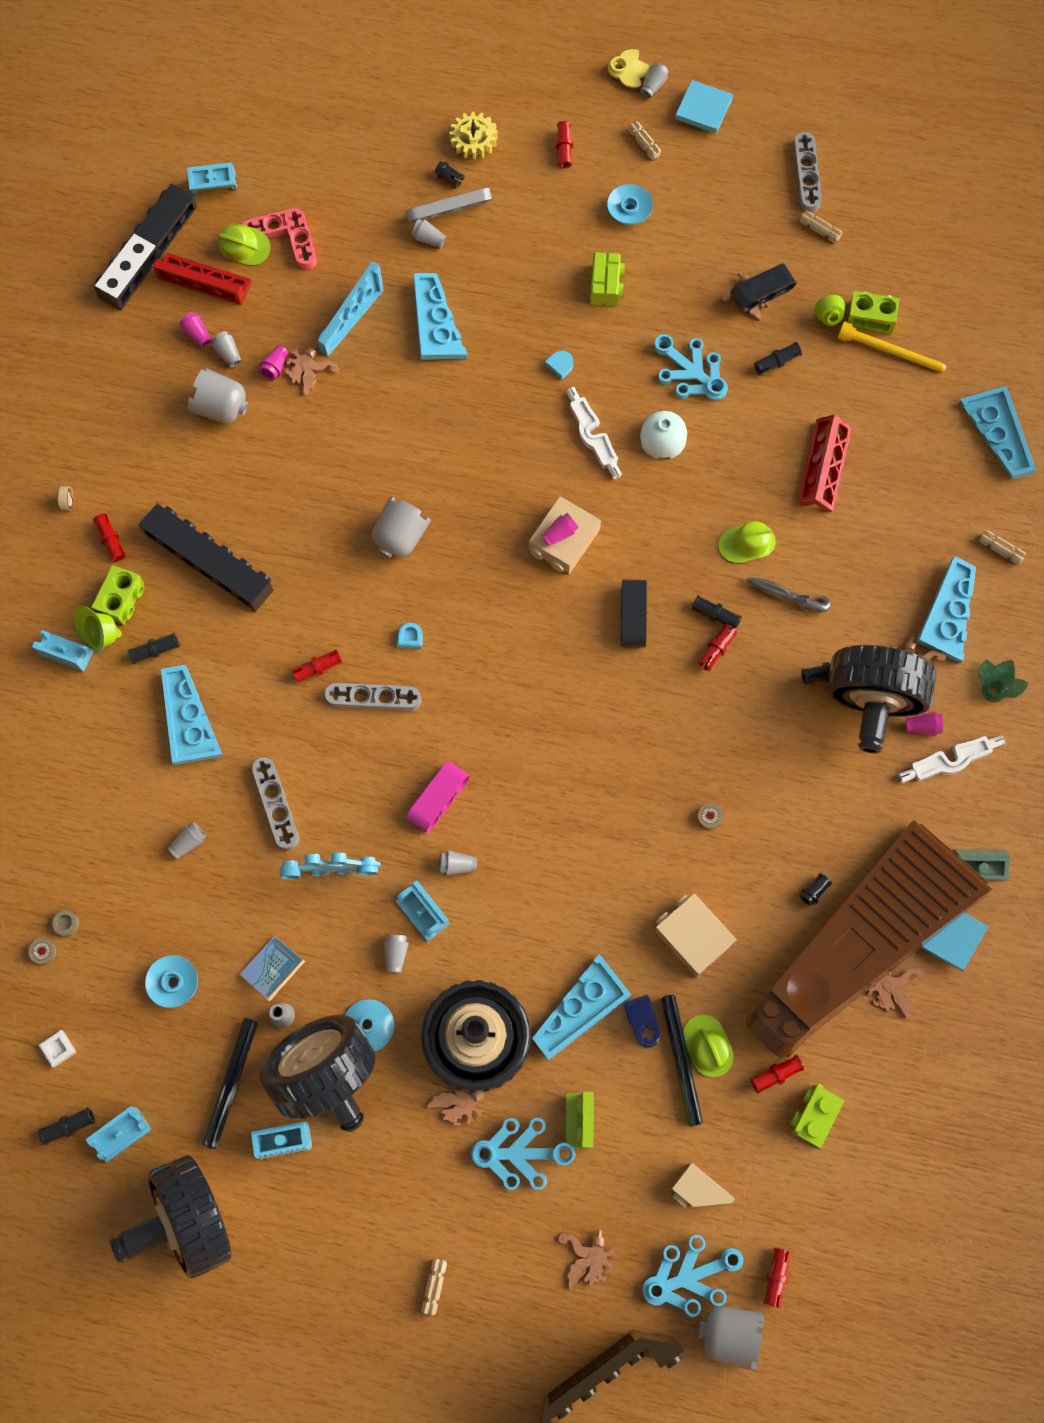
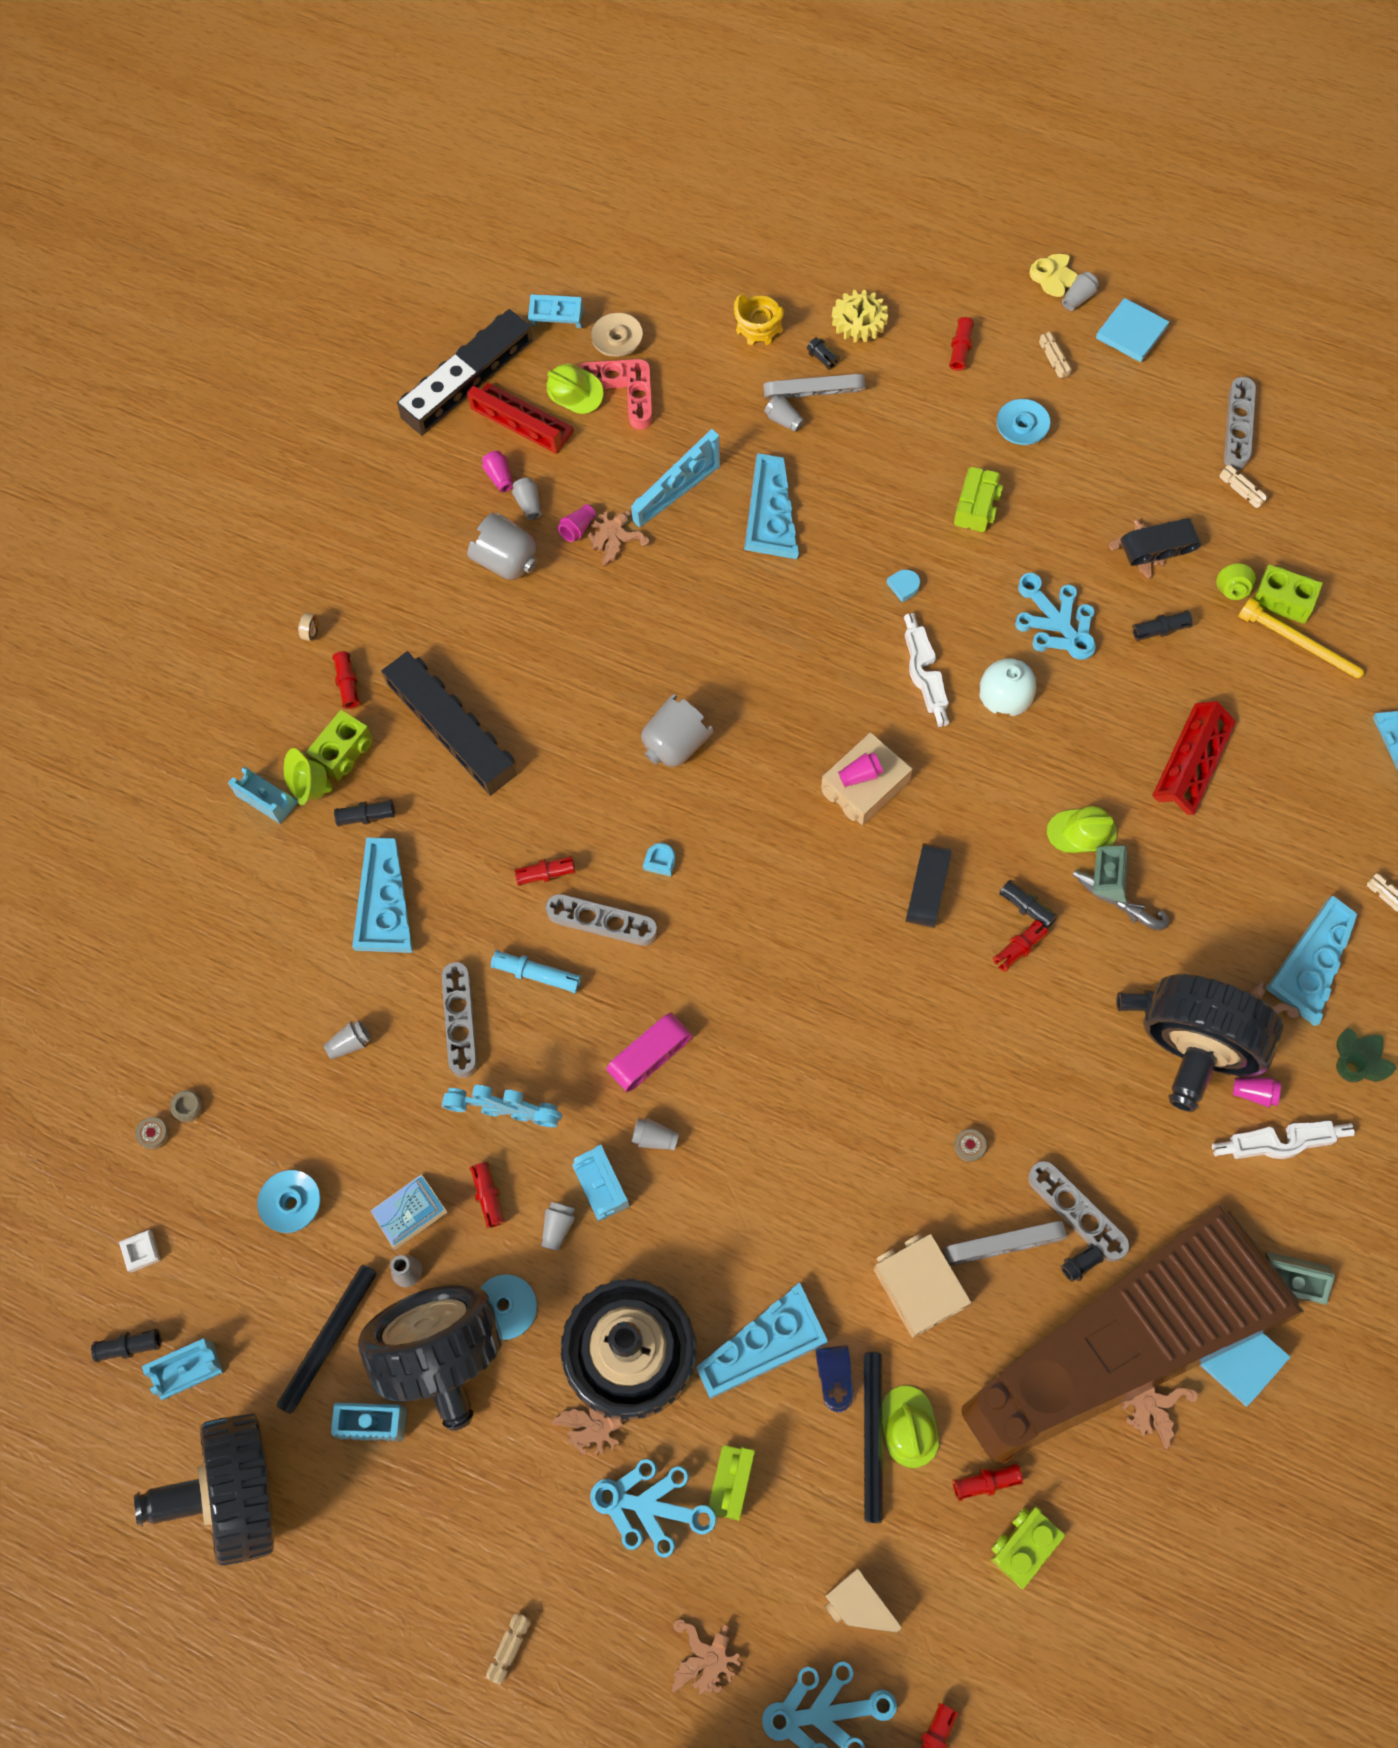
camera: 15 degrees right, 5 degrees down
(269, 182) = (614, 327): none -> tan dish
(328, 750) = (535, 971): none -> medium azure pin
(333, 940) = (487, 1195): none -> red pin
(387, 153) = (758, 318): none -> yellow hair
(753, 887) = (1005, 1243): none -> light grey beam
(777, 572) = (1111, 872): none -> sand green slope
(801, 853) = (1081, 1207): none -> light grey beam

